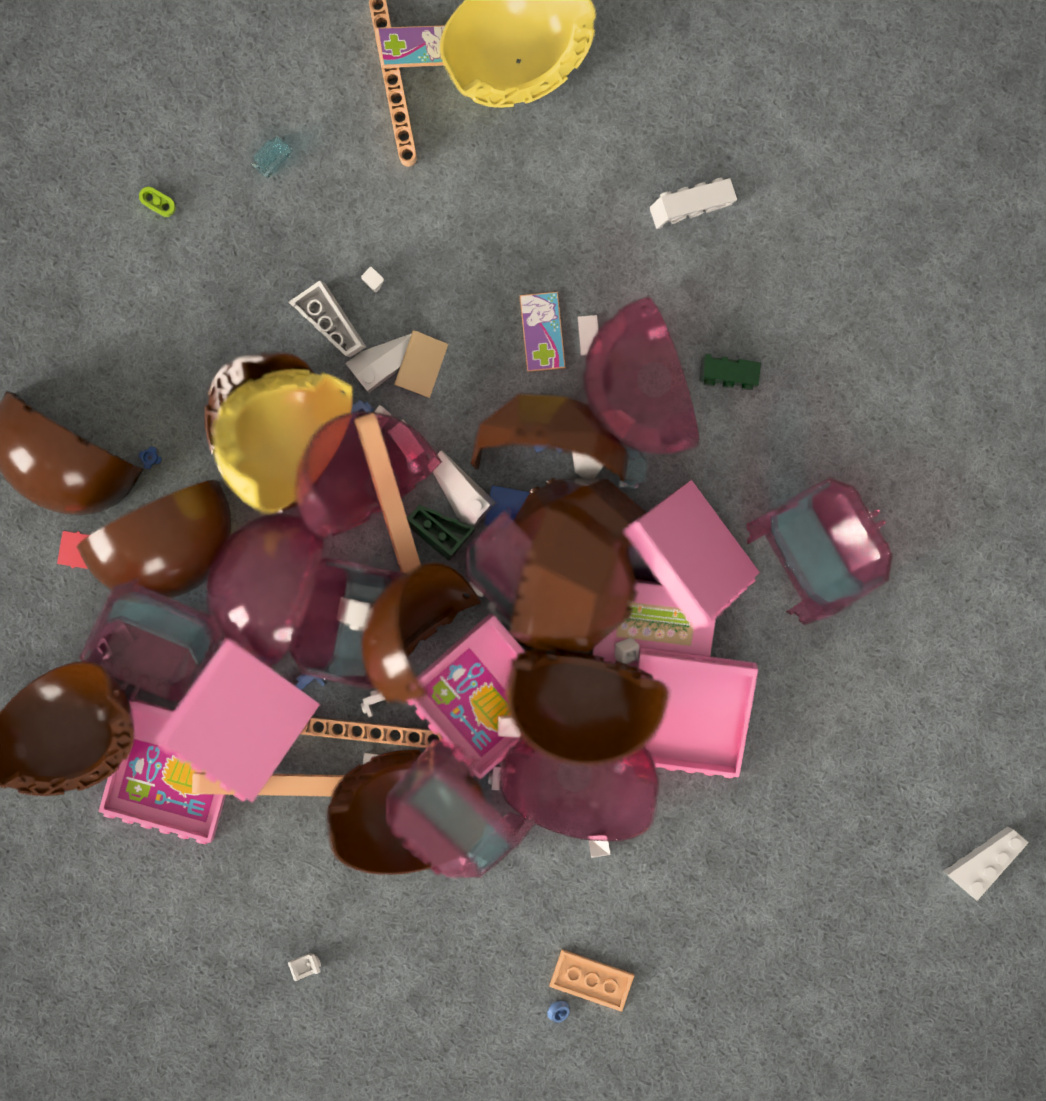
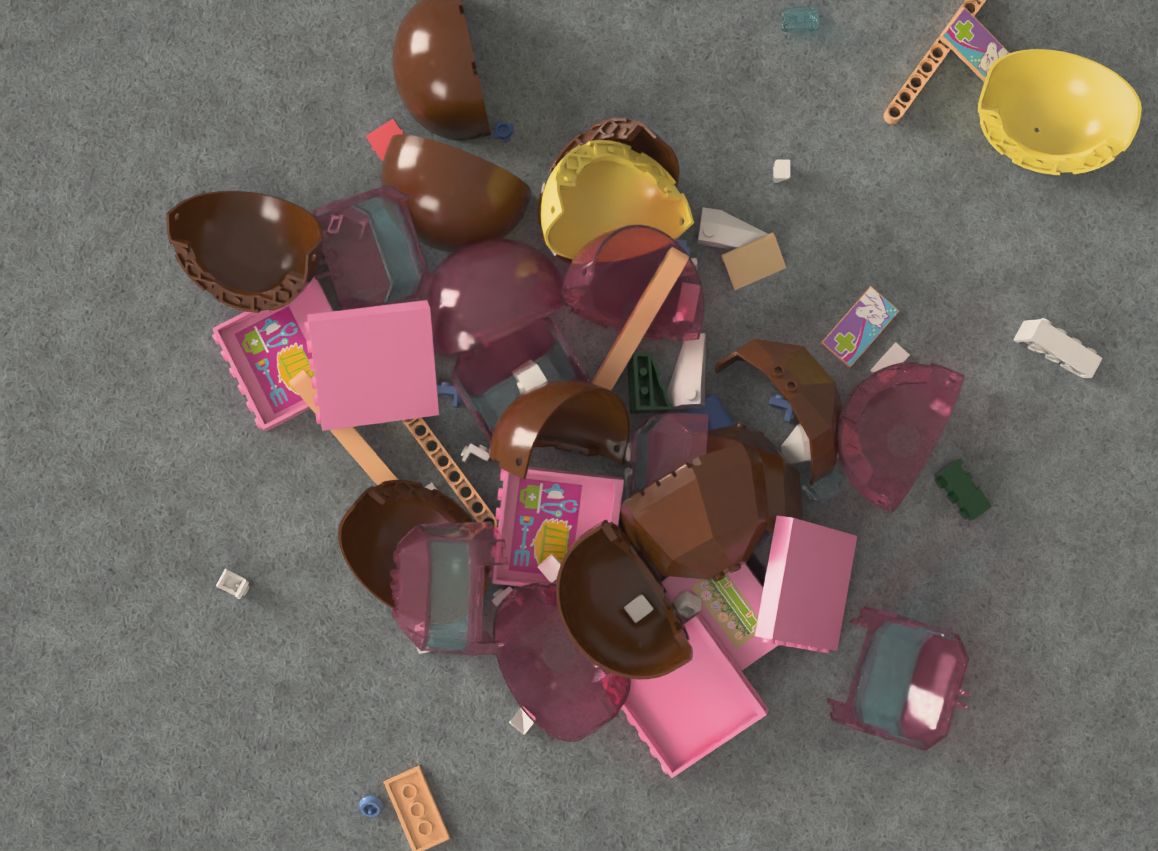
camera: 50 degrees right, 5 degrees down
(328, 318) = (724, 164): white wedge -> none
(596, 690) = (638, 608): none -> white slope

